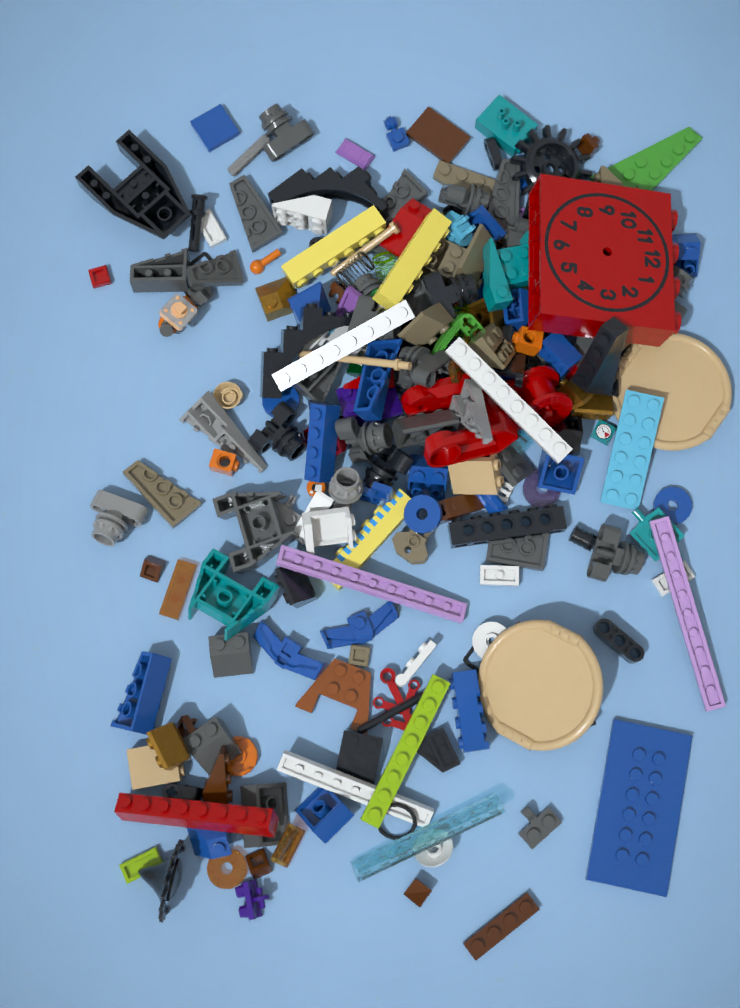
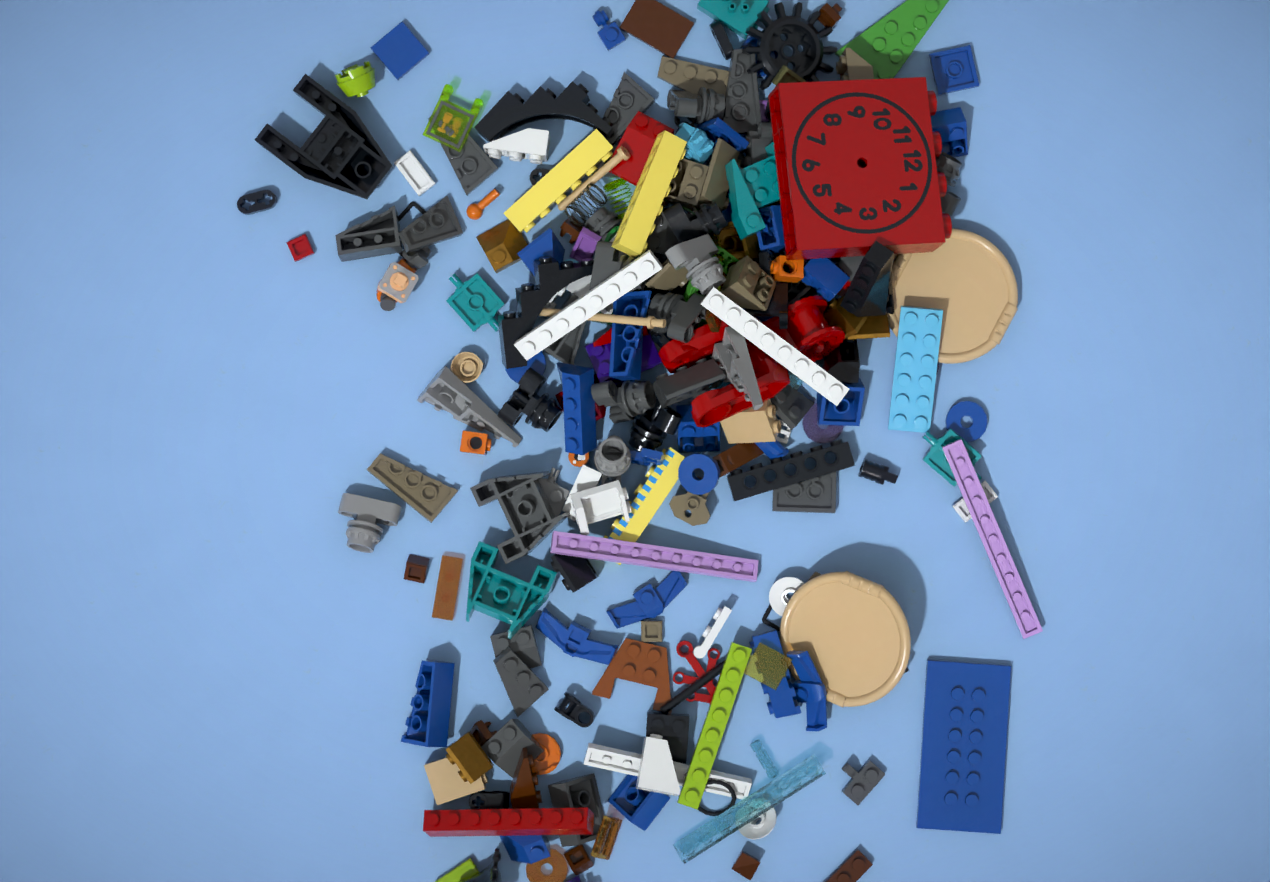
camera: 10 degrees left, 10 degrees up
(69, 233) = (255, 197): none -> black beam
(173, 142) = (356, 79): none -> lime cone
(197, 213) = (398, 160): black pin -> none
(228, 682) = (519, 681): none -> dark grey wing
(244, 341) = (475, 302): none -> teal plate
(248, 155) = (445, 78): light grey axle -> none
(249, 189) = (450, 122): none -> clear neon green flag
(275, 717) = (574, 710): none -> black piece
(276, 123) = (485, 54): dark grey beam -> none
(345, 782) = (657, 767): none -> white slope
(355, 154) = (565, 60): medium lavender tile -> none
(438, 751) = (749, 719): black wing -> none
(448, 791) = (764, 759): none -> clear light blue axle
(450, 317) = (699, 261): none -> light grey beam
(463, 700) = (767, 666): none -> clear yellow piece
(499, 575) = (789, 525): white plate -> none
(500, 729) = (810, 690): none -> blue plate
(603, 432) = (882, 350): tile -> none
(607, 553) = (903, 485): dark grey beam -> none
(628, 642) = (934, 579): black beam -> none
(692, 204) = (954, 70): none -> blue tile

